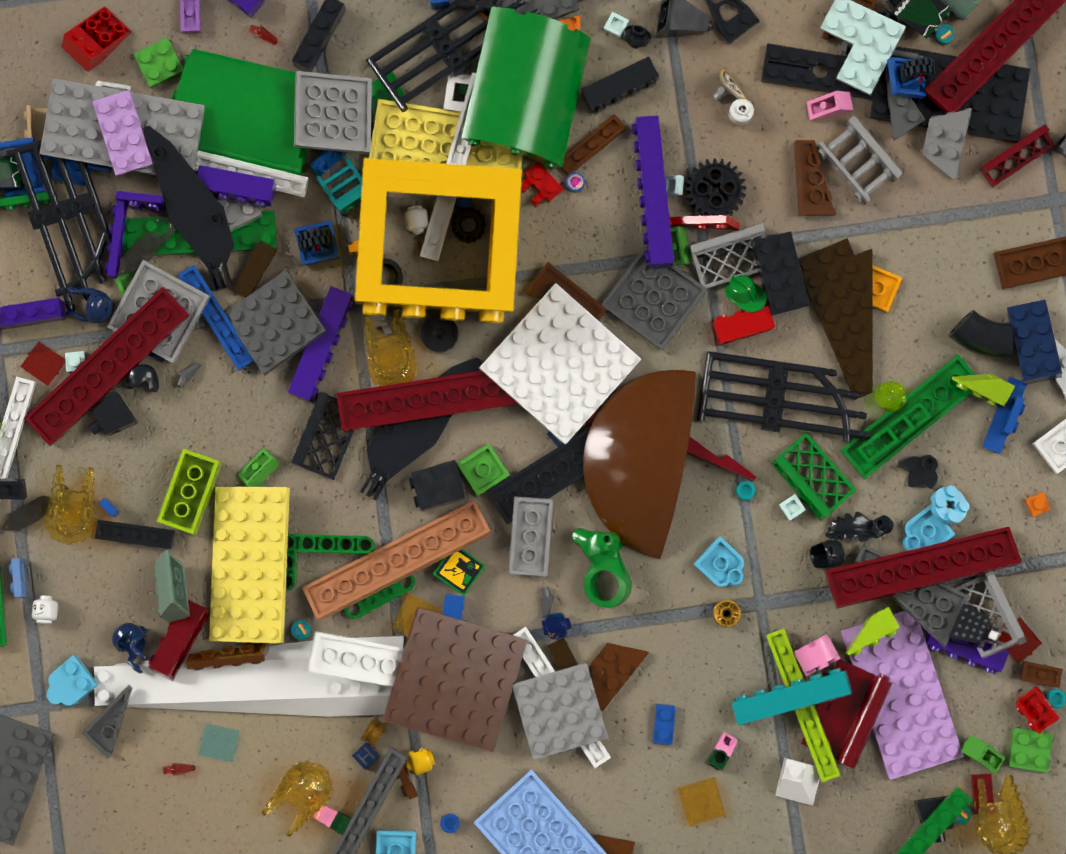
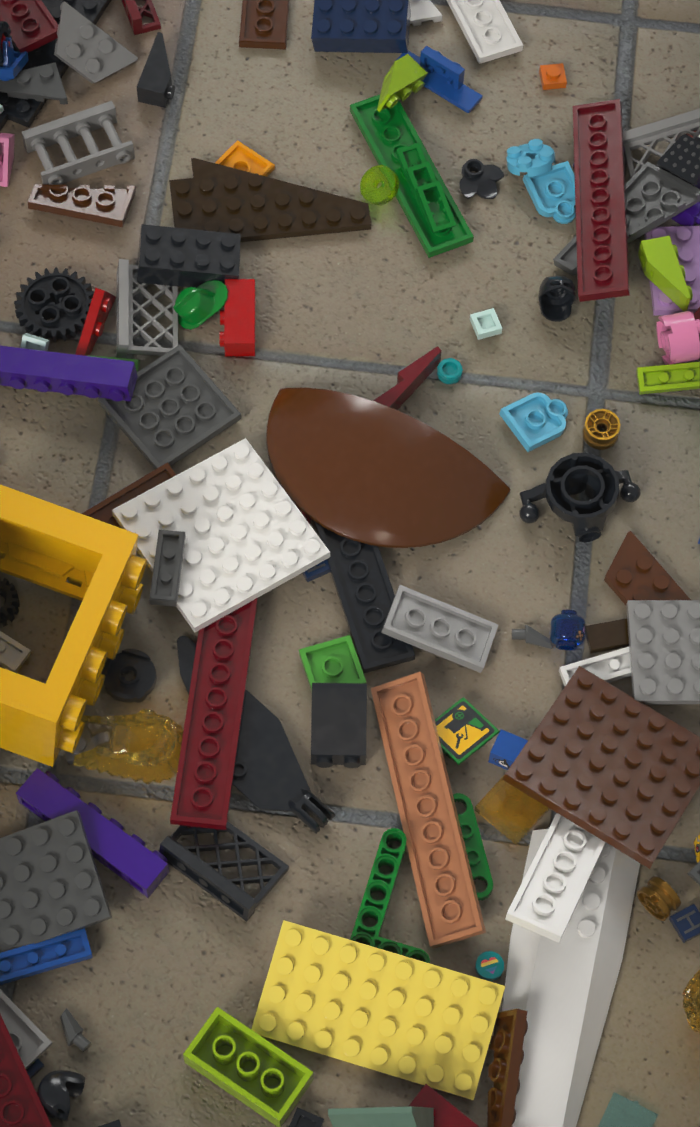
camera: 75 degrees left, 20 degrees down
(258, 469) = (241, 966): bright green slope -> none
(517, 335) = (167, 568): none -> dark grey tile
(603, 553) = (490, 545): green animal -> none
(657, 594) = (572, 476): none -> black piece
(775, 394) = (340, 306): black piece -> none
(804, 489) = (459, 309): green fence -> none
(859, 527) = (531, 258): black plant -> none
(936, 200) = (155, 81): none -> black slope
(984, 336) = (337, 69): black brick -> none

